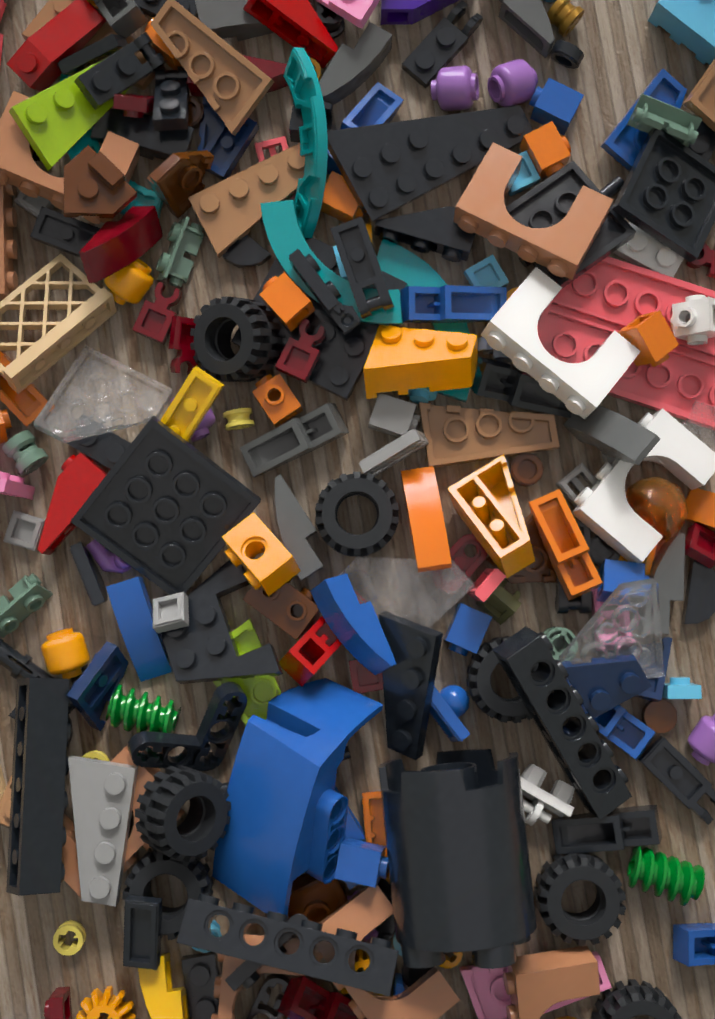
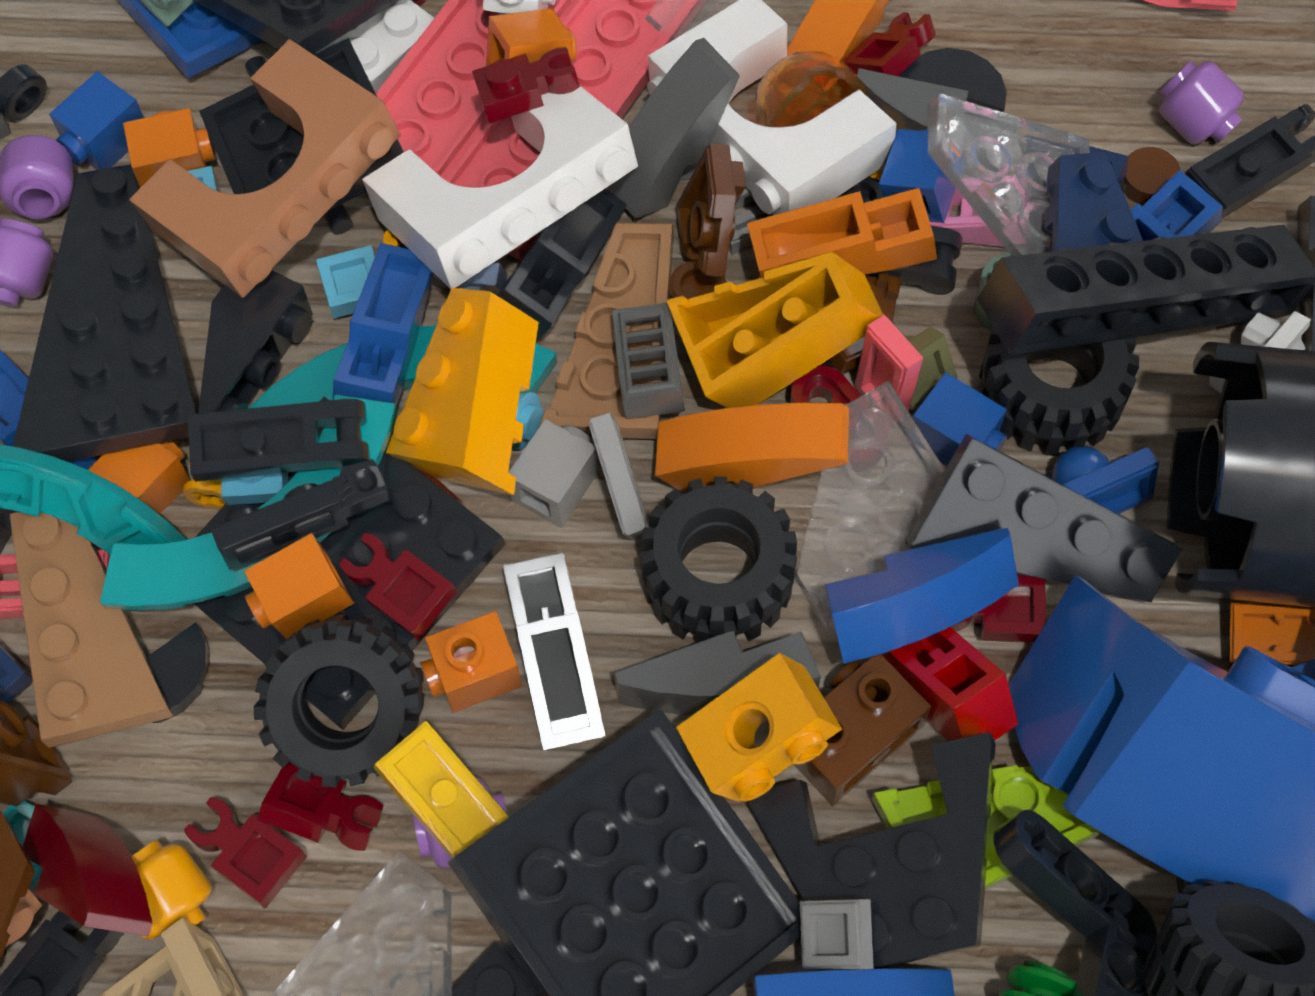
camera: 75 degrees left, 20 degrees down
(183, 239) = (114, 776): sand green hinge -> none
(238, 419) = (488, 740): light yellow bush -> none
(444, 467) = (653, 397): none -> dark grey slope
(565, 465) = (707, 209): none -> reddish brown plate
(615, 336) = (517, 86): none -> dark red plate
(681, 689) = (1112, 129): medium azure plate -> none

